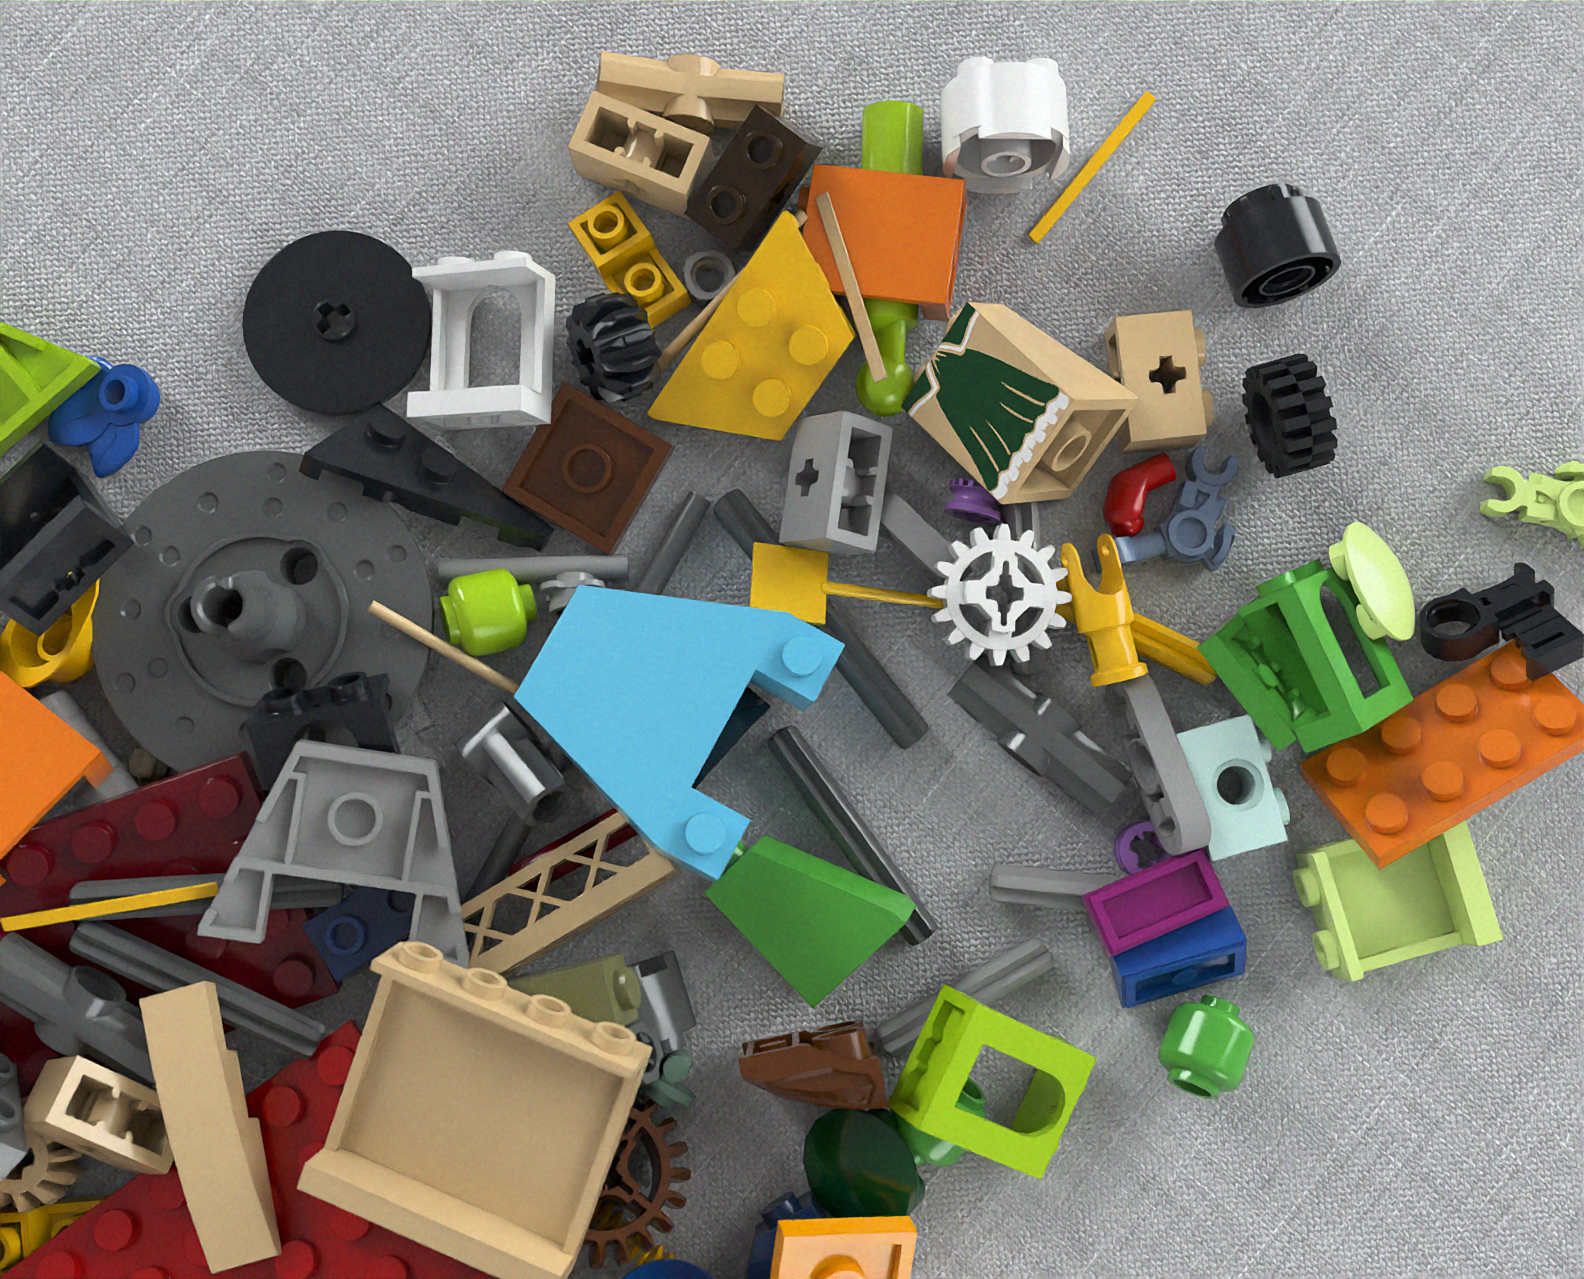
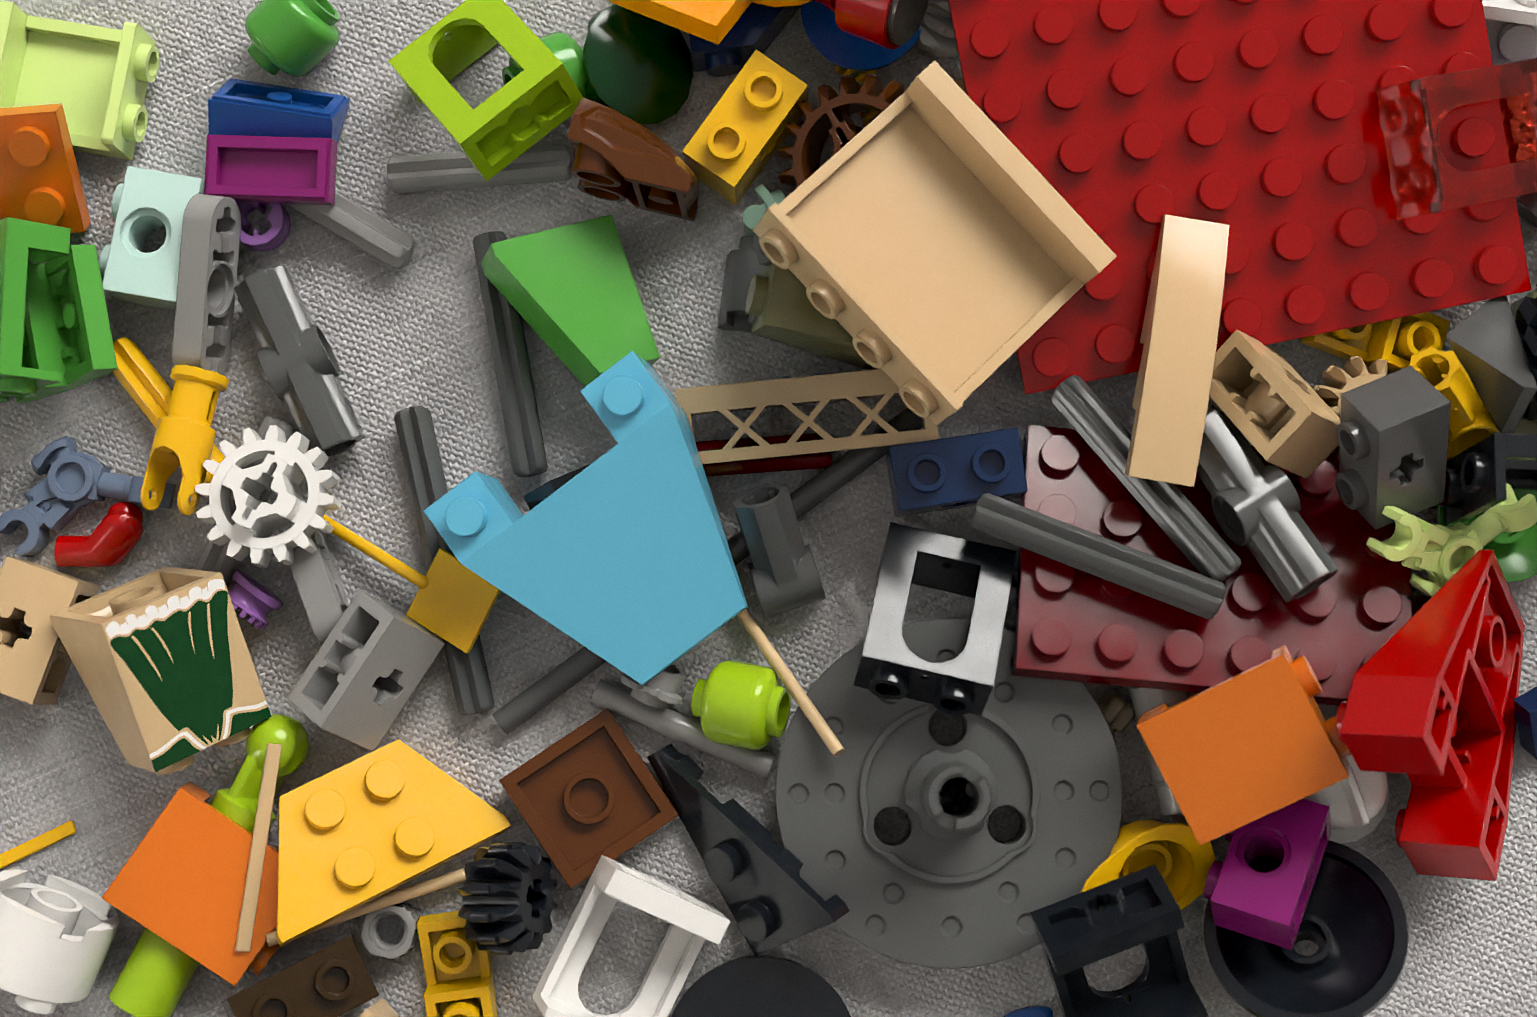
camera: 150 degrees left, 0 degrees up
(109, 906) = (1185, 580): yellow piece -> none
(352, 822) = (936, 555): light grey wing -> none
(728, 1156) = (745, 127): none -> yellow brick

